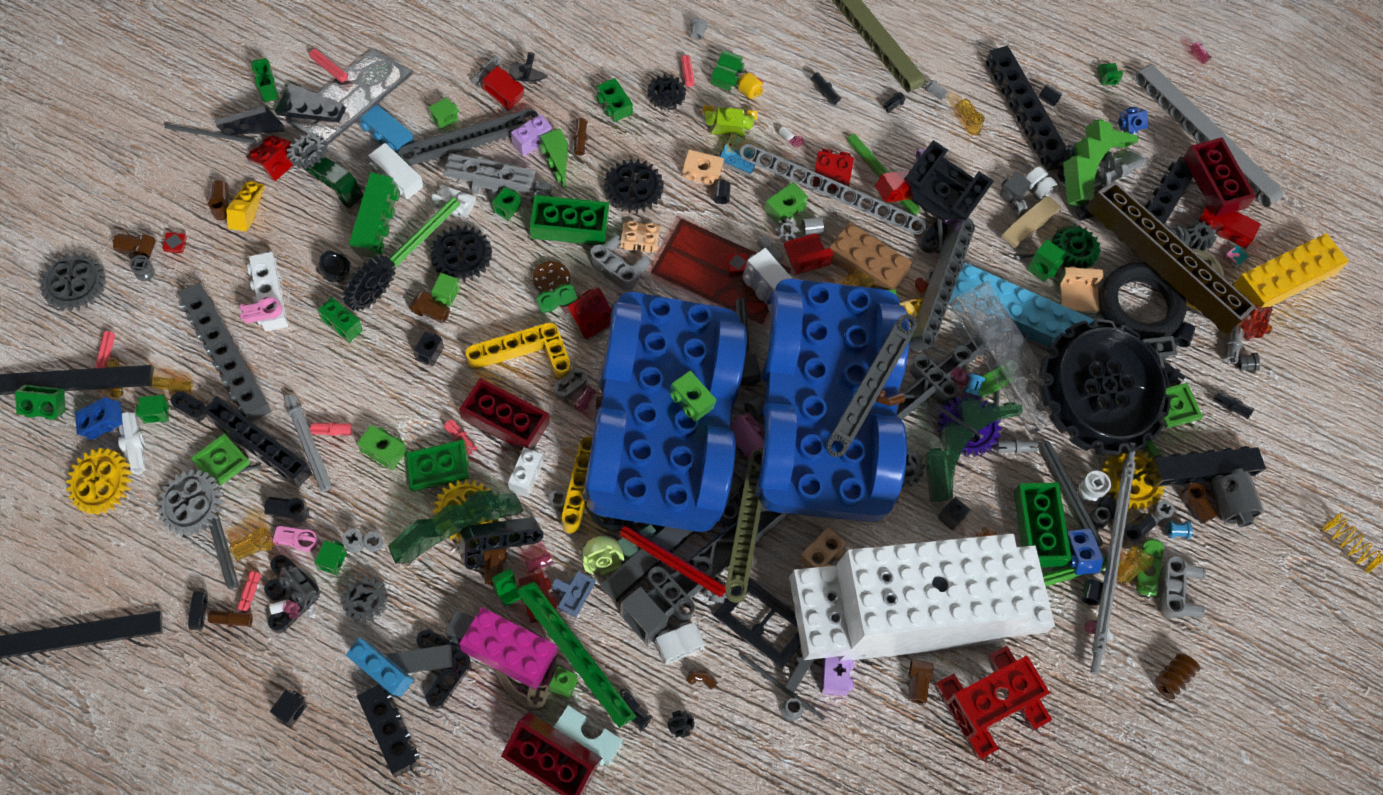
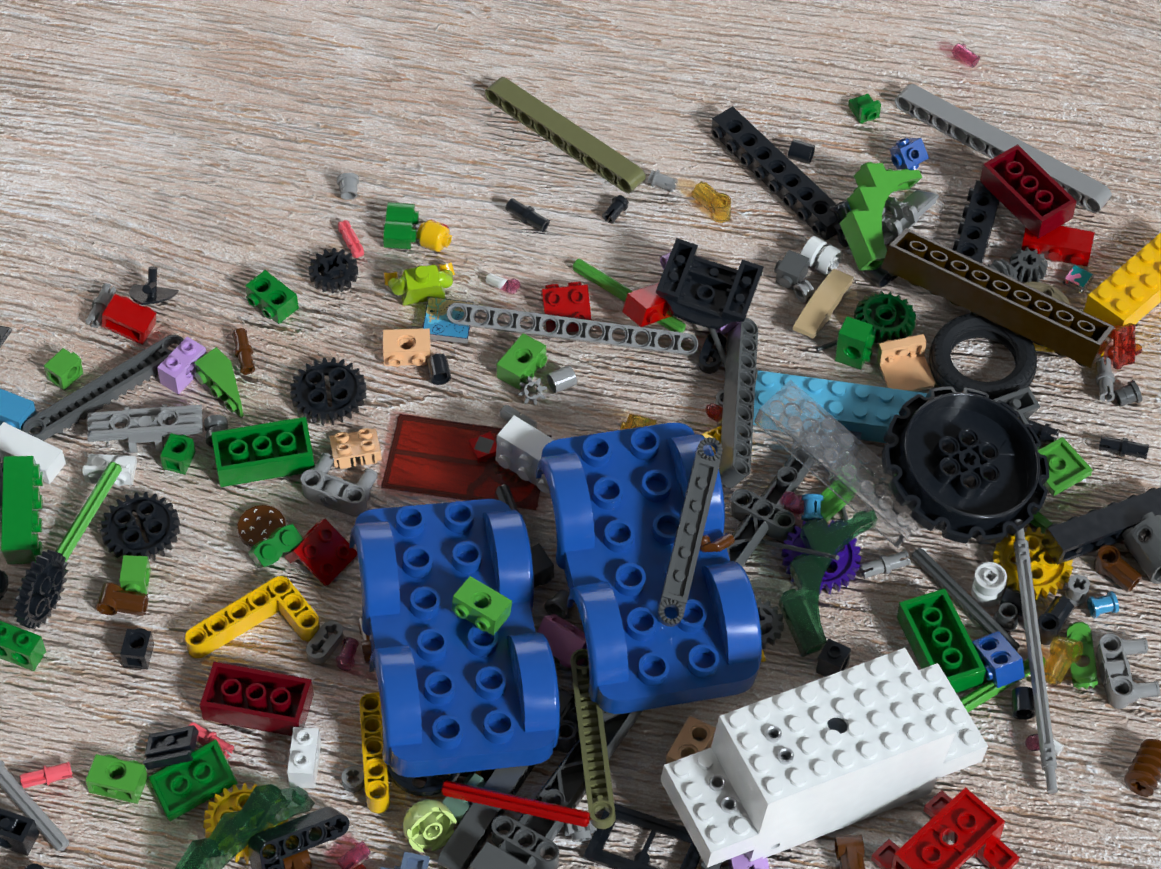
camera: 10 degrees left, 10 degrees down
(428, 434) = (170, 747): none -> black plate
(807, 254) = (566, 412): red bracket -> none
(870, 256) = (632, 391): medium nougat brick -> none
(1184, 335) = (1043, 383): black beam -> none

